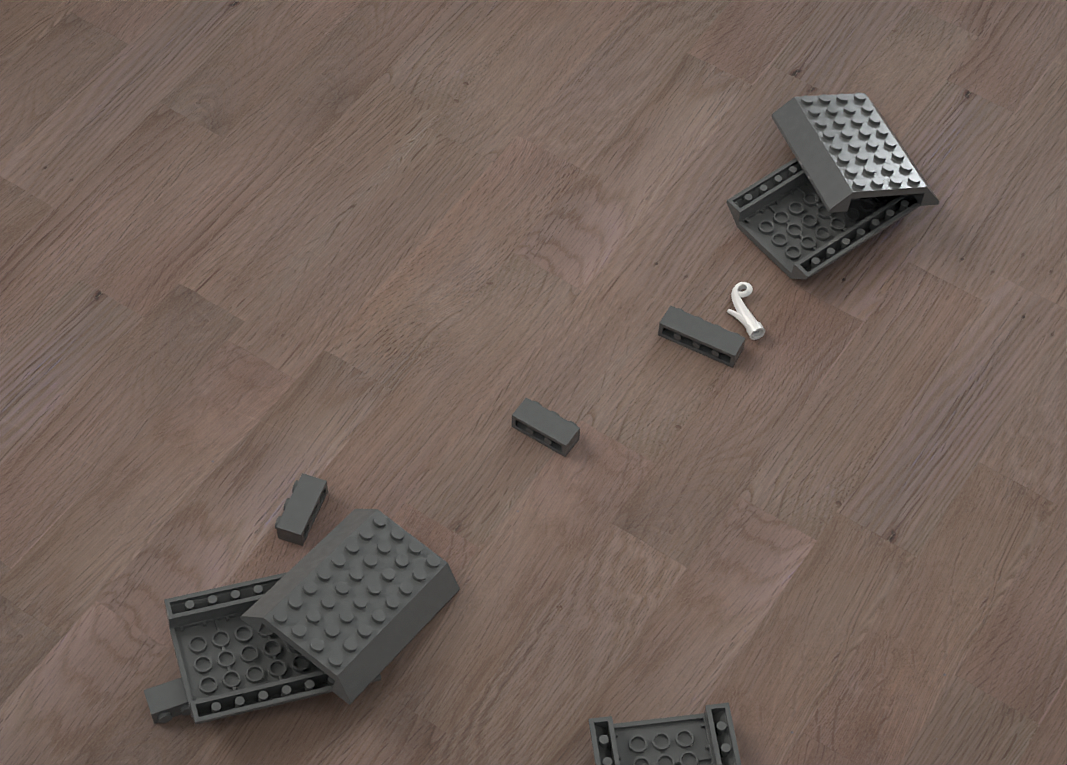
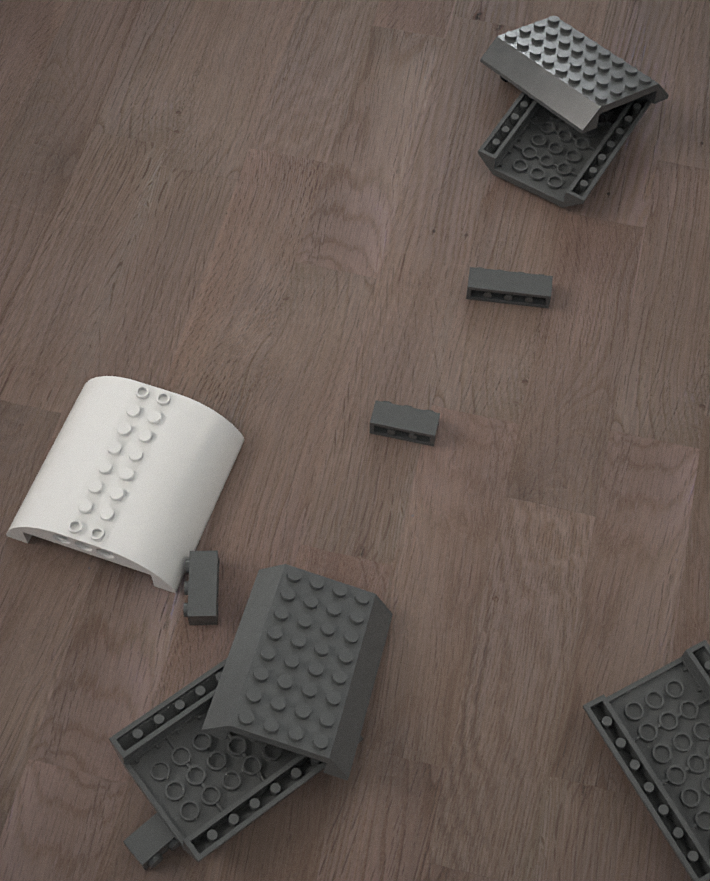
camera: 20 degrees left, 5 degrees up
(282, 396) = (131, 478): none -> white slope
(753, 327) = (552, 264): white plant -> none

